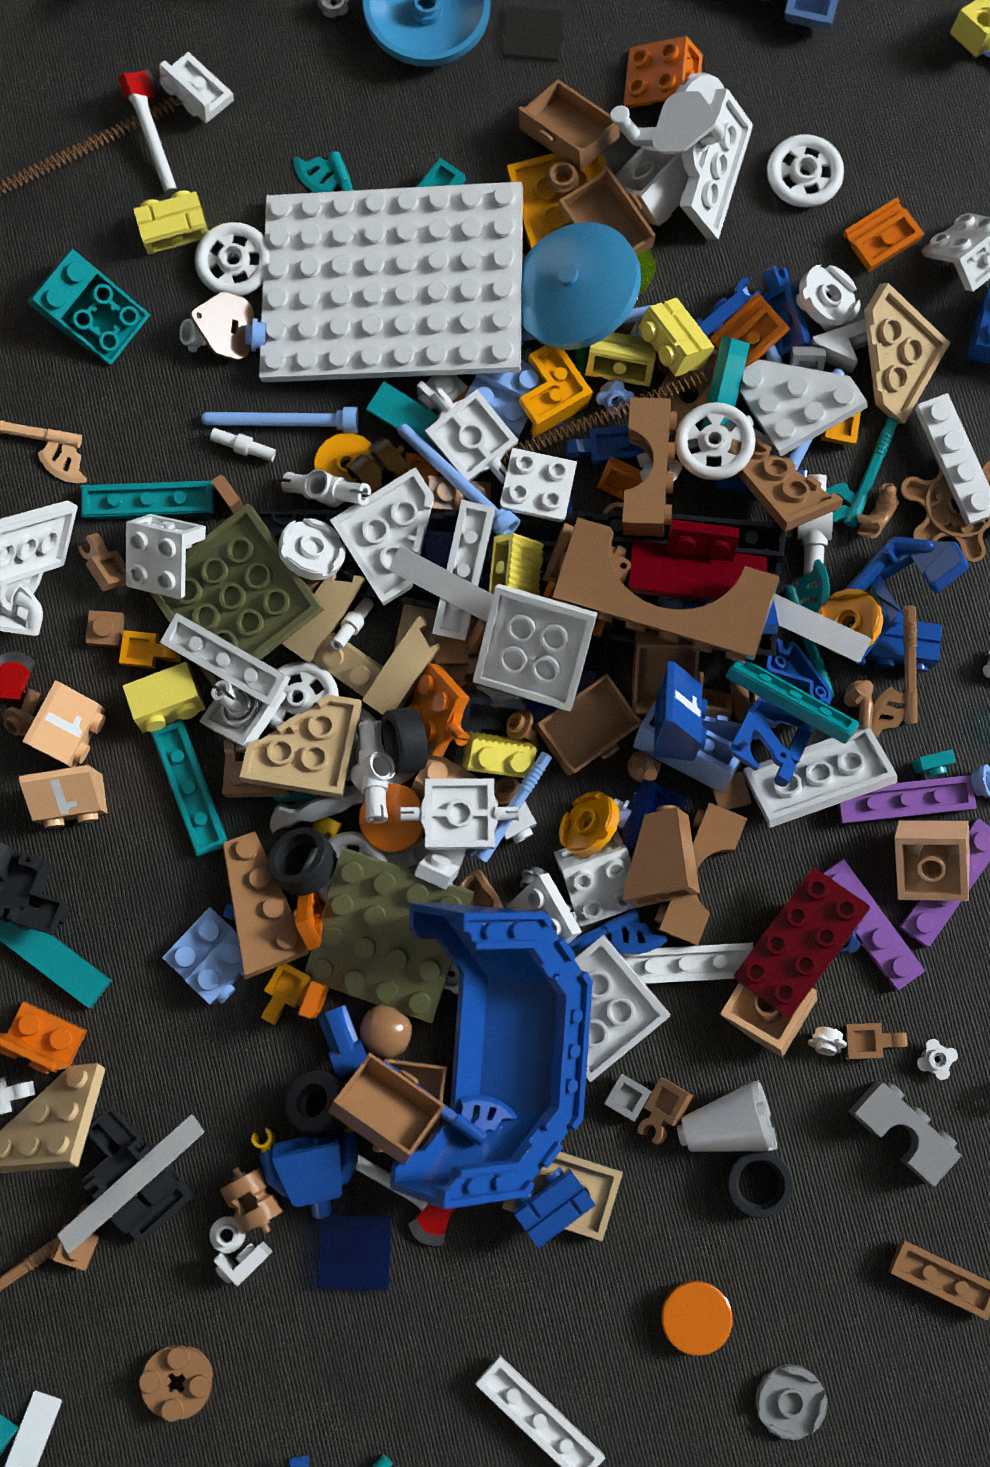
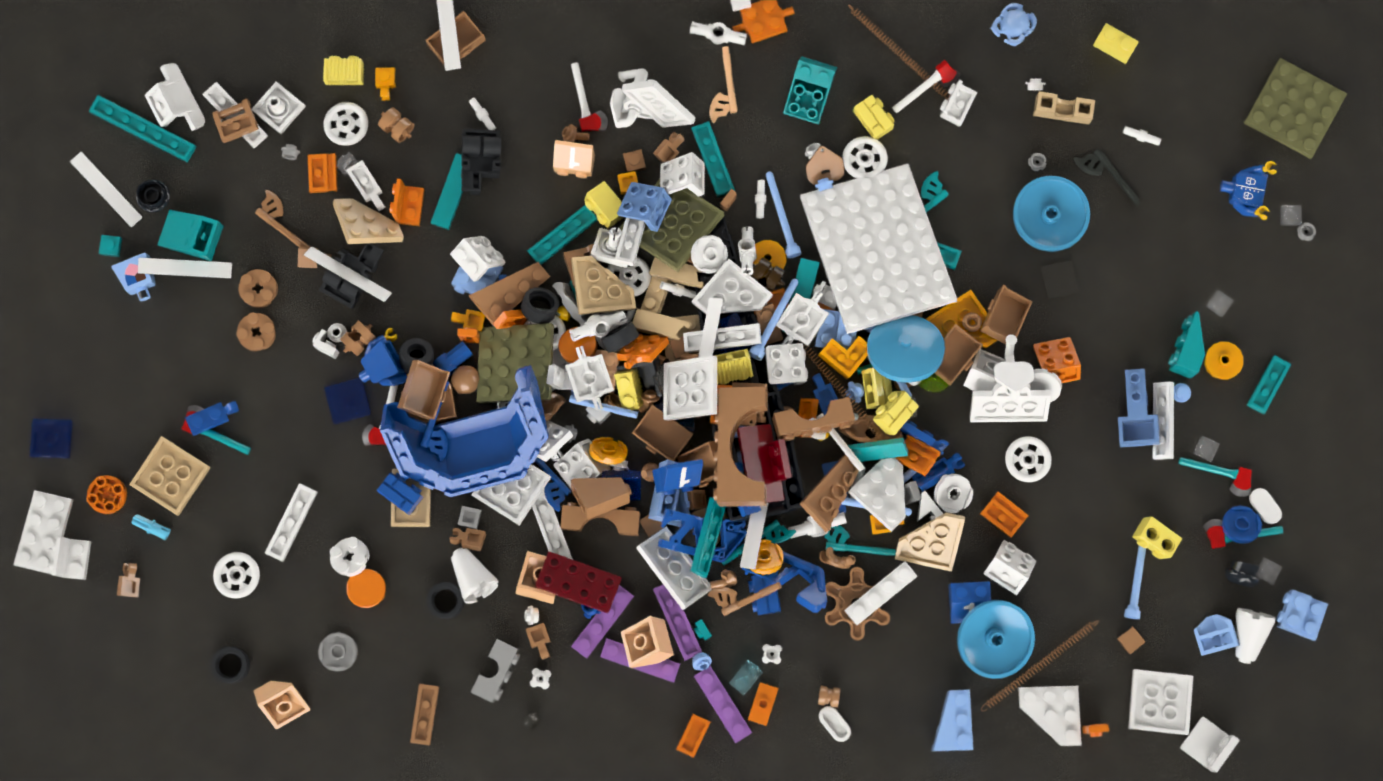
camera: 80 degrees right, 0 degrees up
(64, 796) = (536, 171): light nougat slope -> none
(81, 1367) = (266, 295): none -> medium nougat plate
(179, 944) = (477, 256): none -> white bracket
(188, 627) = (645, 204): none -> medium blue bracket
(620, 1347) = (342, 549): none -> white plate
(730, 463) = (850, 465): white plate -> none

